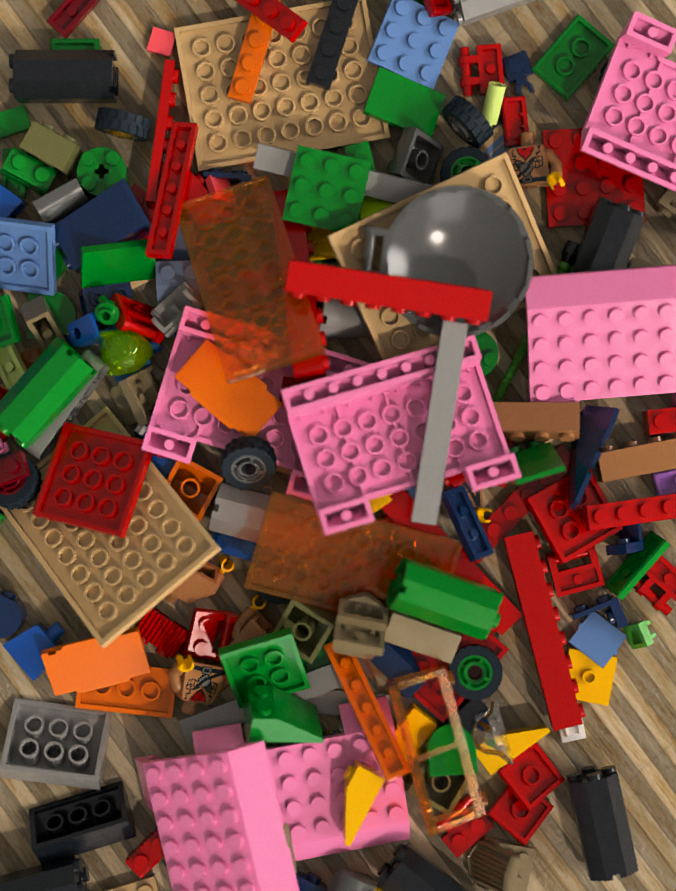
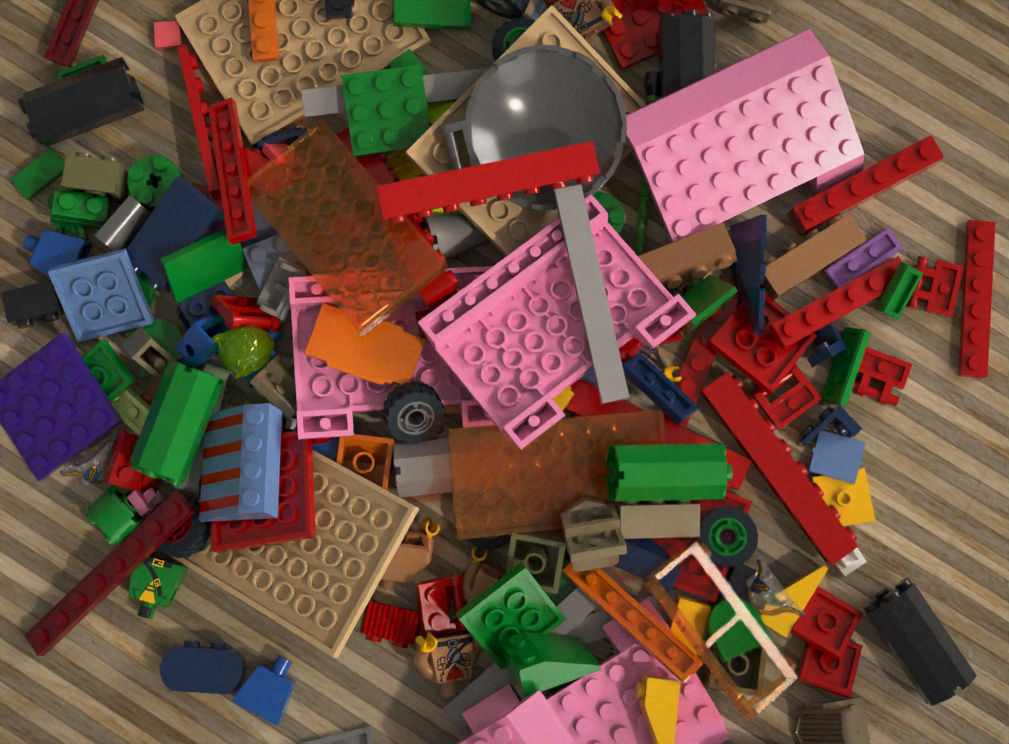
camera: 20 degrees left, 5 degrees down
(85, 450) = (241, 464): none -> medium blue slope
(88, 666) = (333, 683): orange piece -> none
(106, 311) = (211, 315): green plate -> none
(122, 124) = (158, 126): black wheel -> none
(141, 695) = (375, 697): orange plate -> none
(234, 546) = (433, 505): blue plate -> none
(415, 156) = (462, 46): dark grey brick -> none
(465, 835) = (785, 708): red plate -> none
(639, 634) = (876, 435): bright green tile -> none

